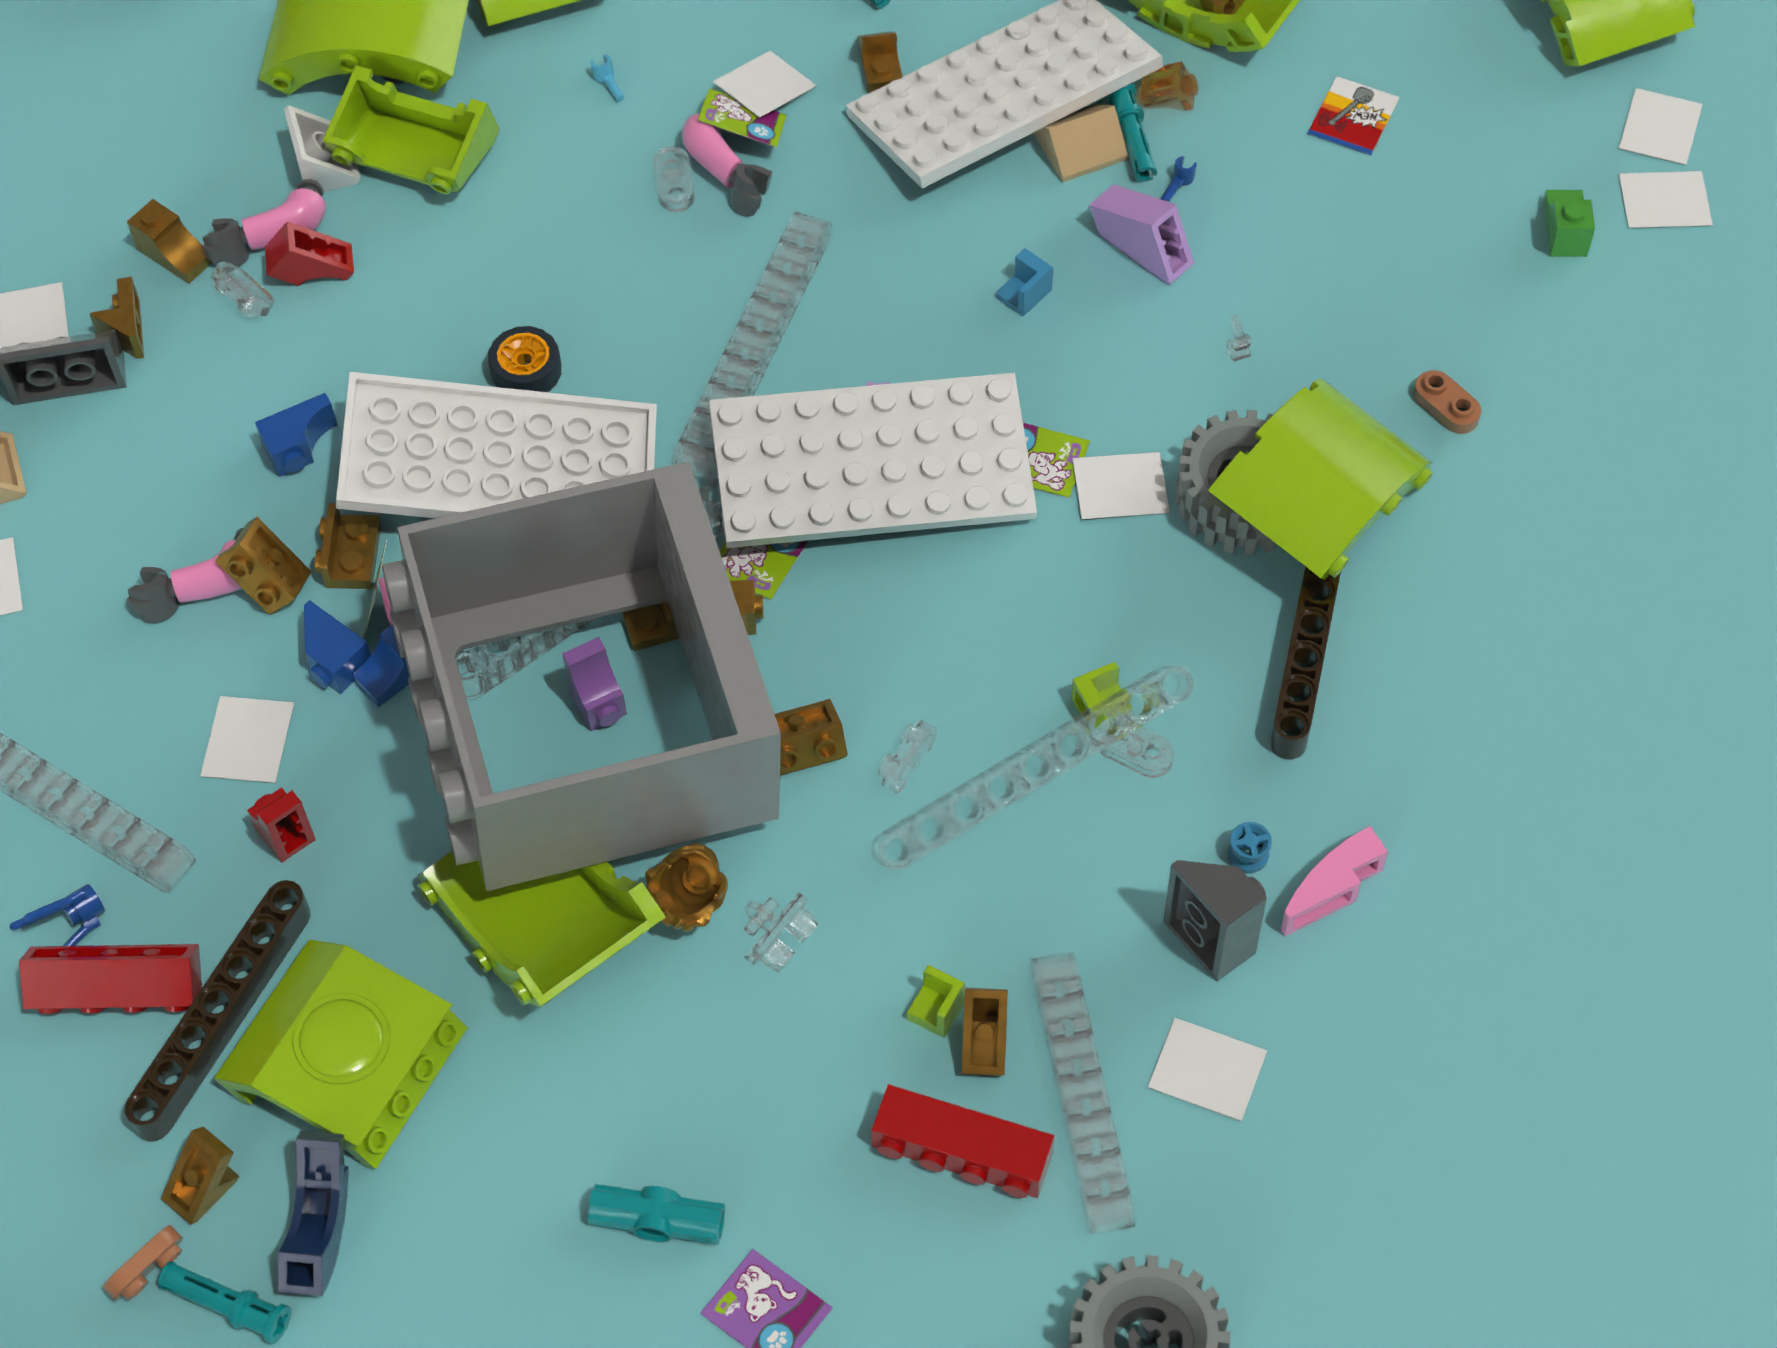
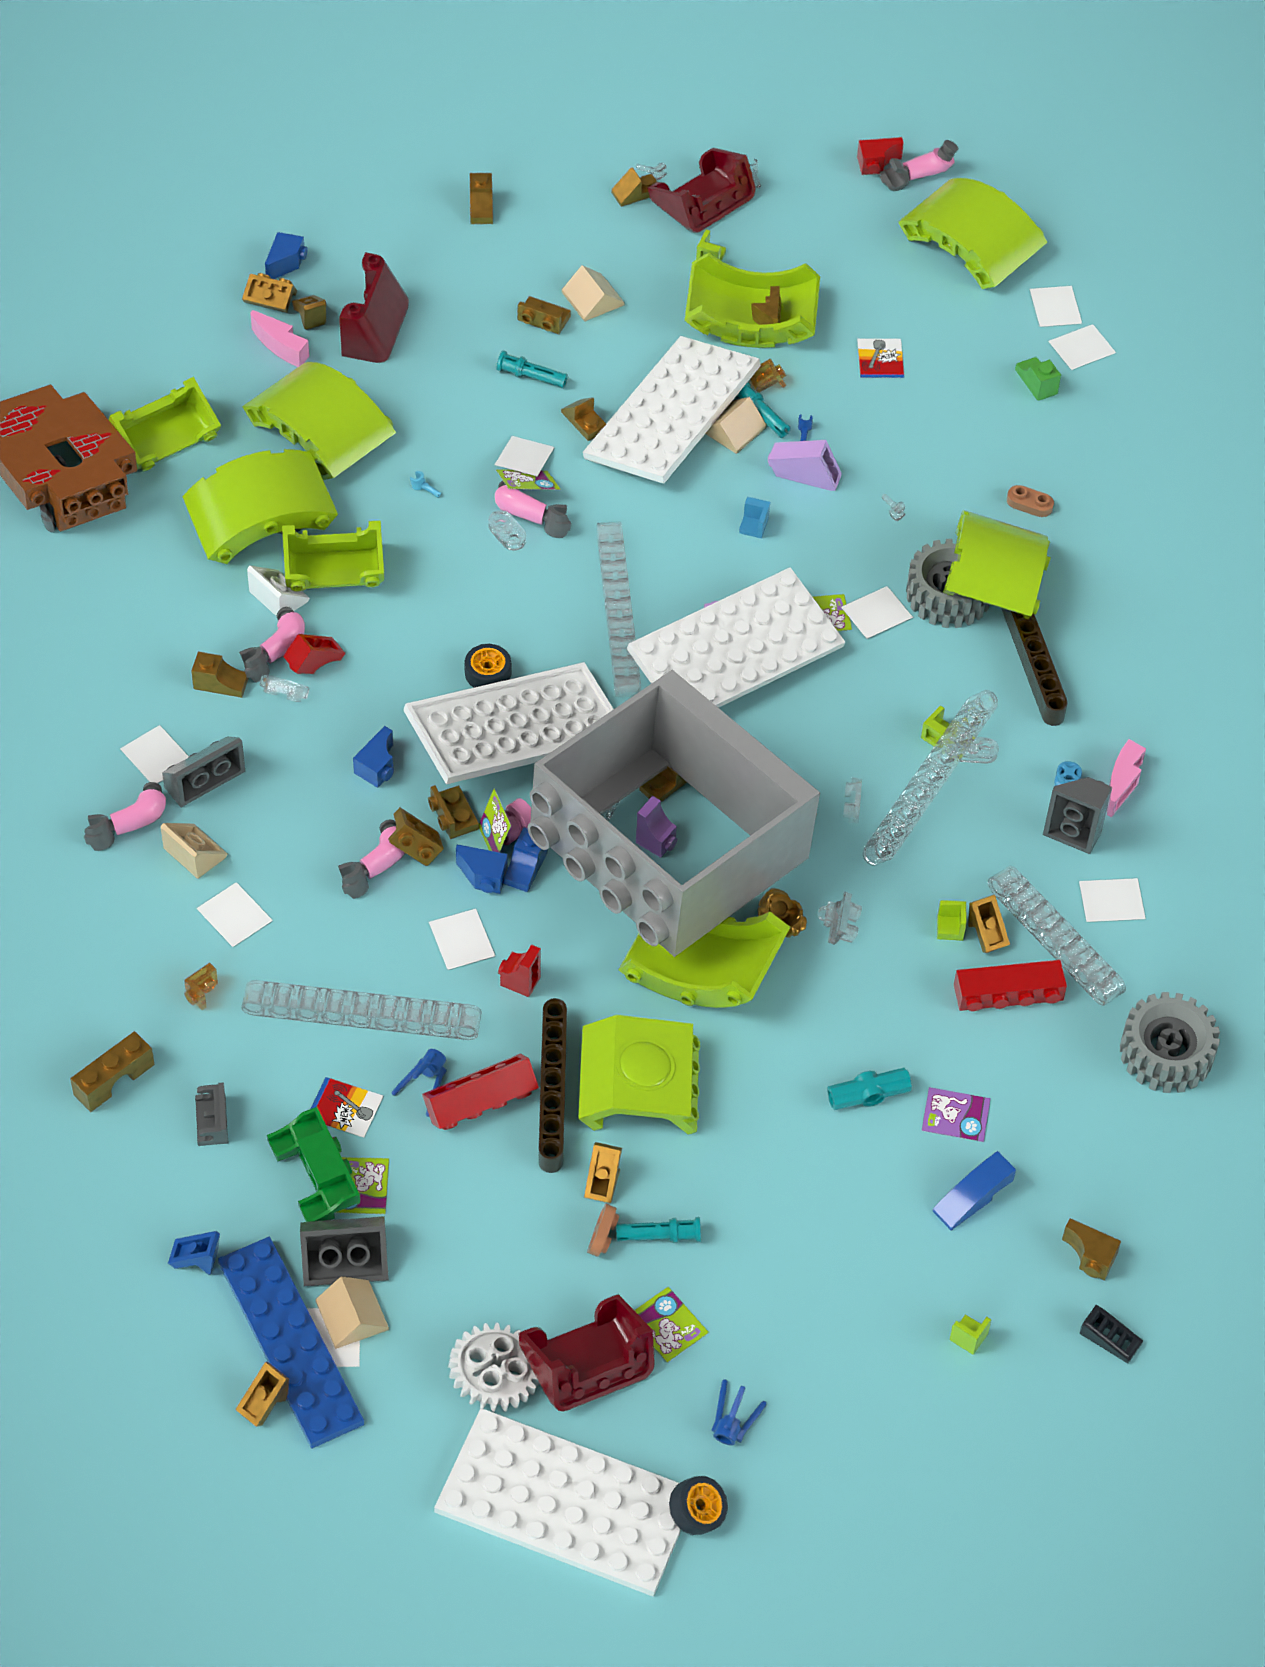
camera: 30 degrees left, 5 degrees down
(124, 318) = (219, 726): pearl gold slope -> none
(318, 1215) = (687, 1175): dark blue arch -> none

